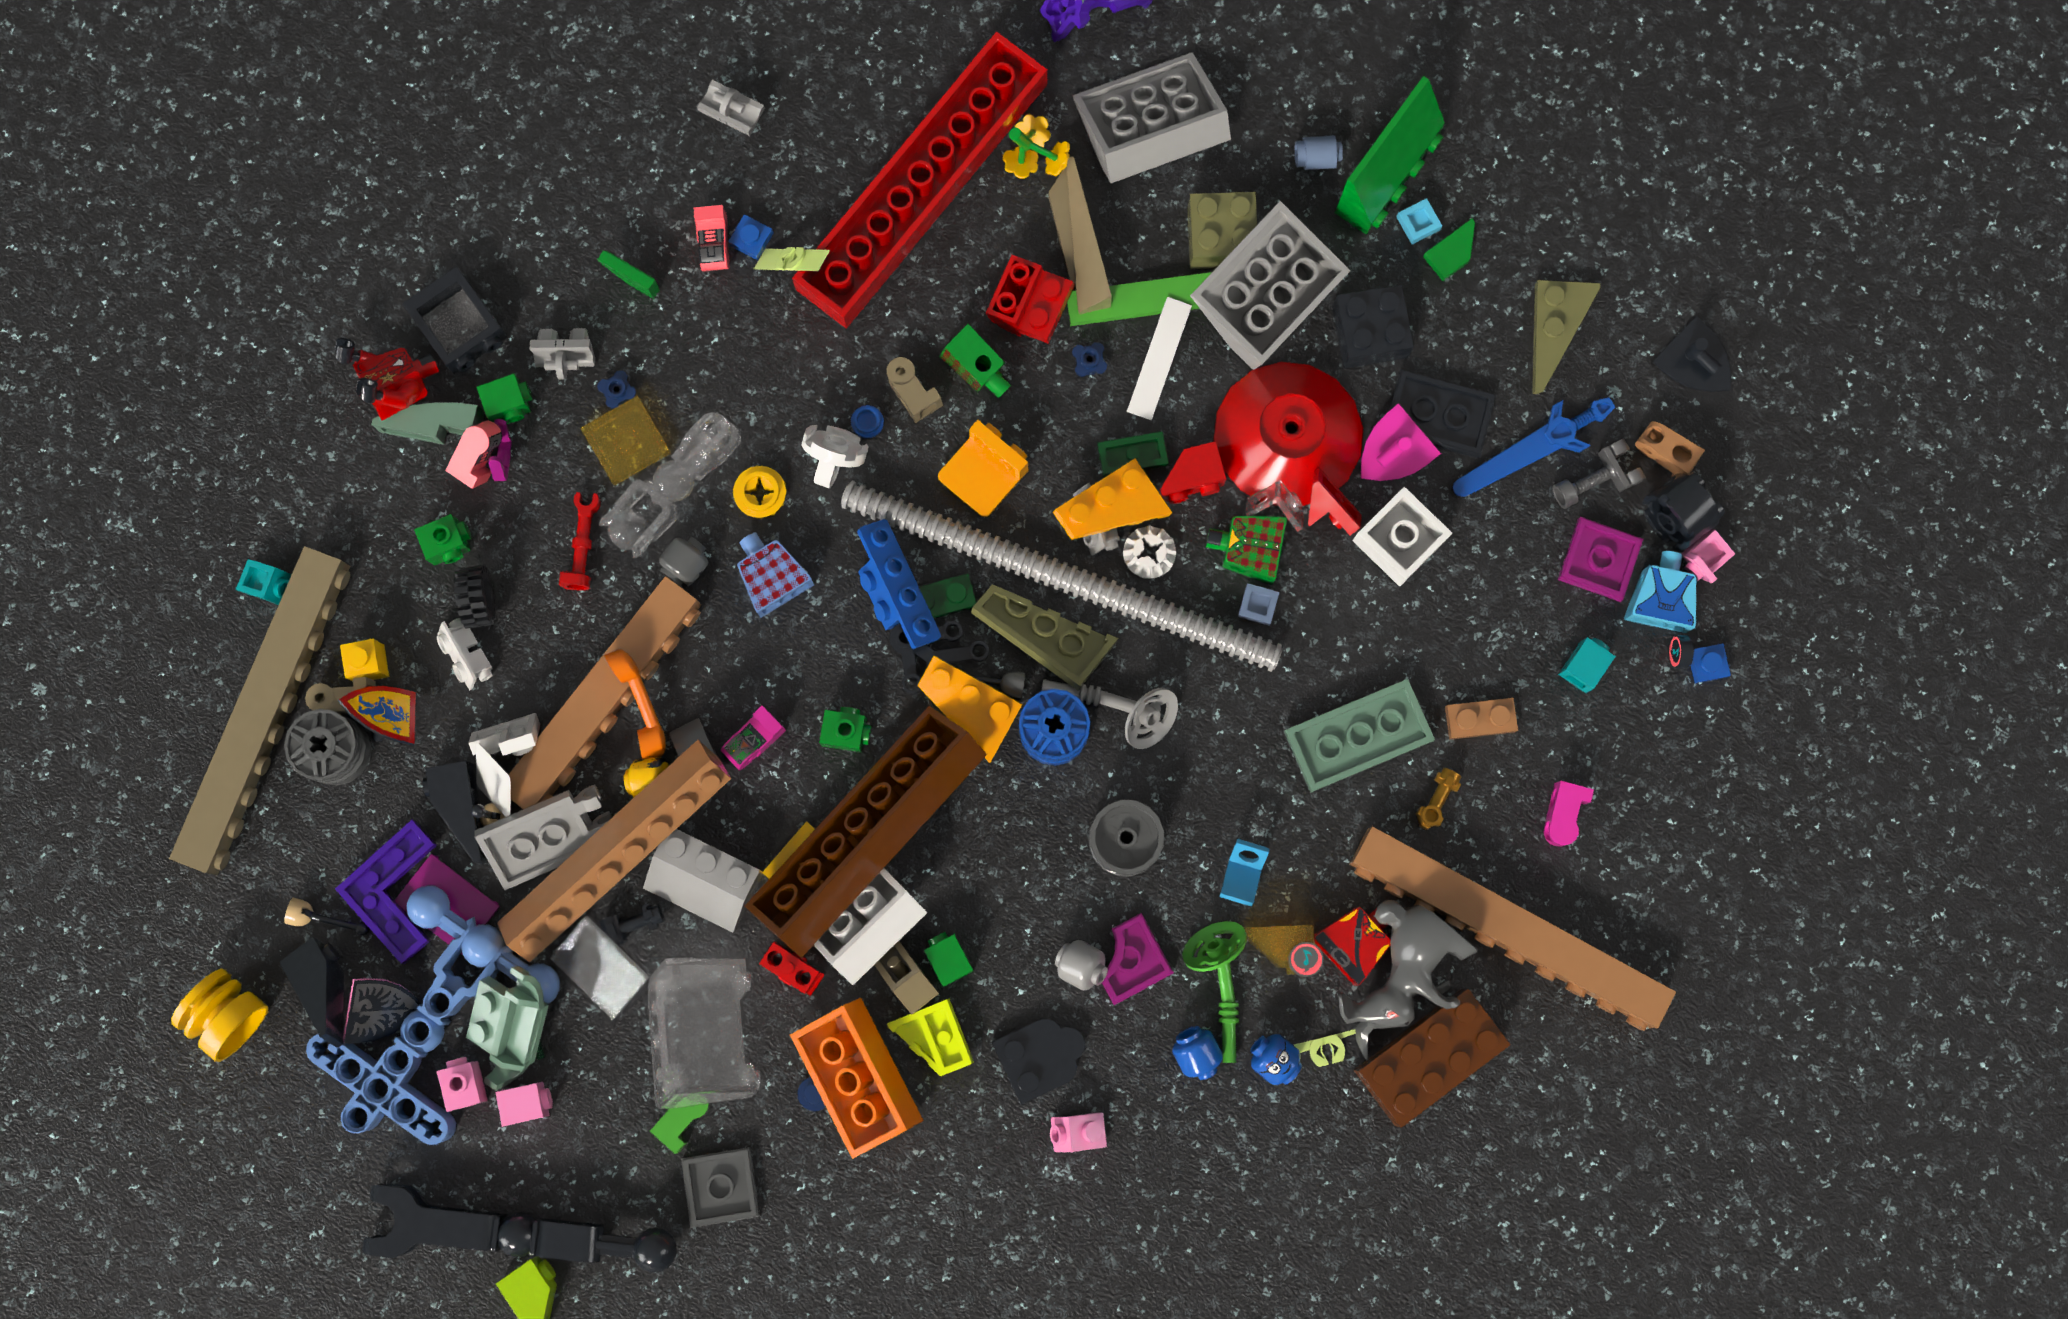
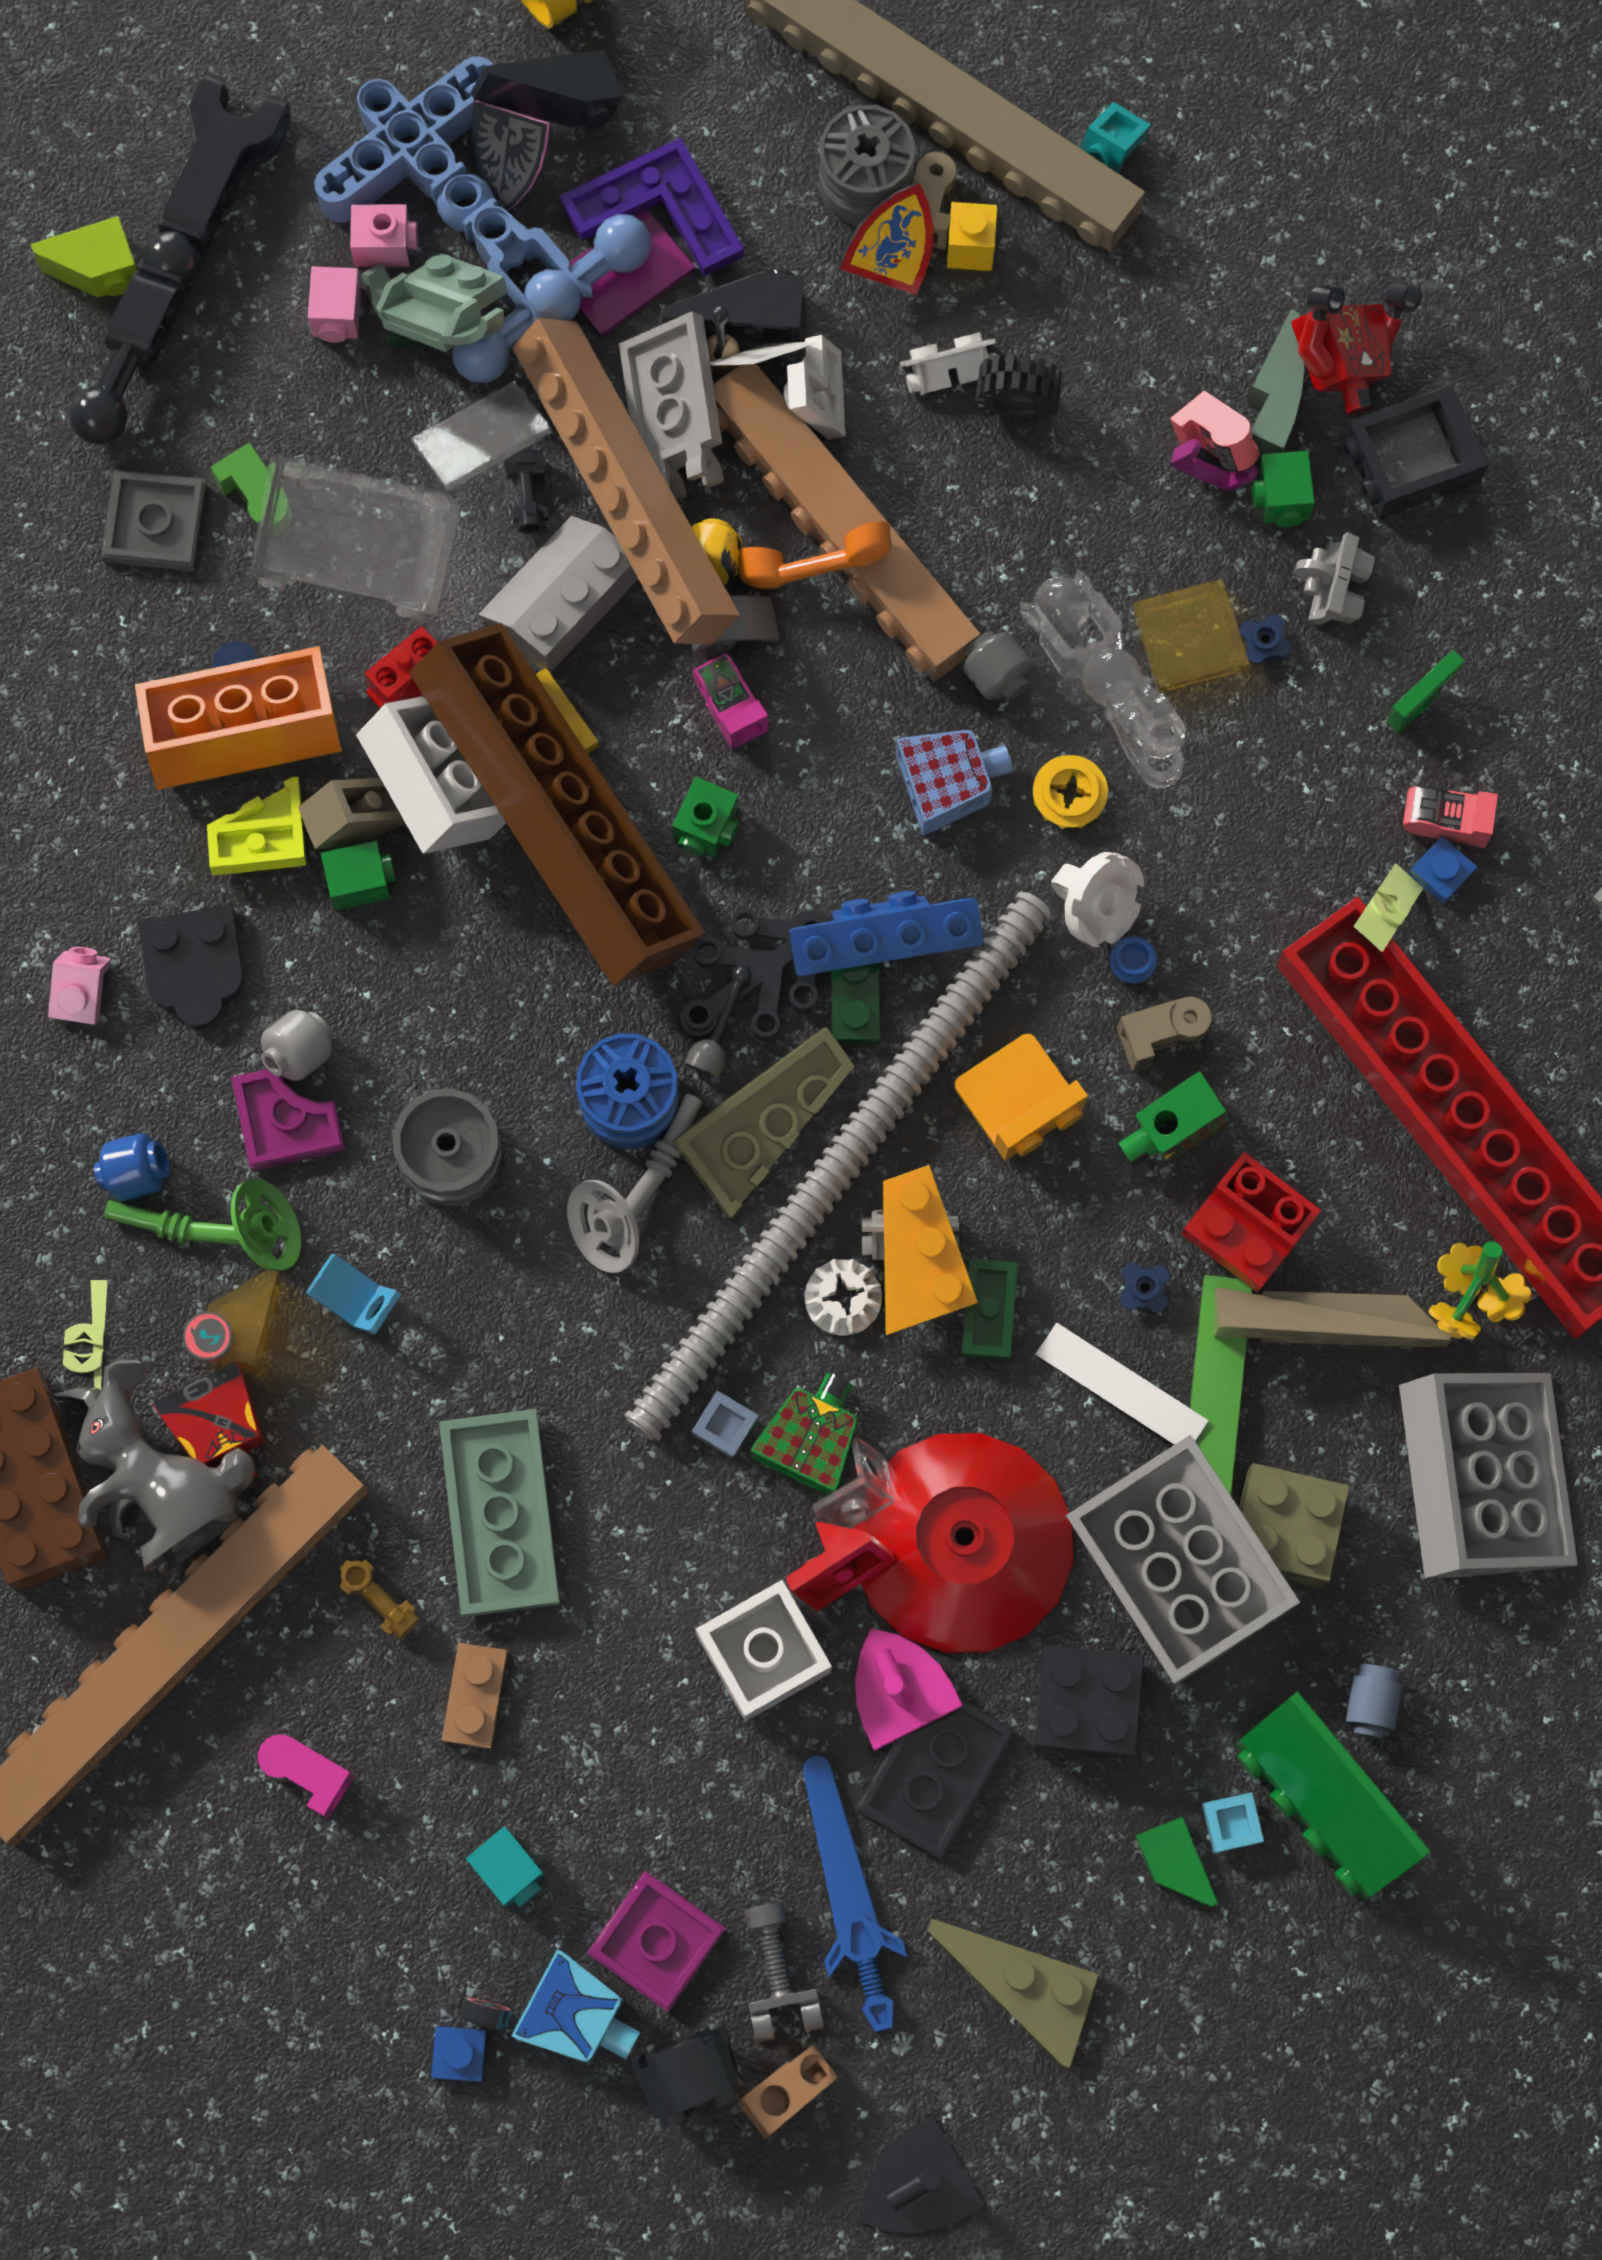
camera: 105 degrees right, 5 degrees down
(301, 913) = (663, 93): hinge -> none
(444, 540) = (1110, 370): green brick -> none
(581, 543) = (1060, 545): red piece -> none
(970, 704) = (691, 988): light orange wing -> none
(1194, 472) = (941, 1385): red slope -> none
(1275, 1059) = (90, 1268): blue head -> none
(1707, 556) = (613, 2095): bright pink bracket -> none

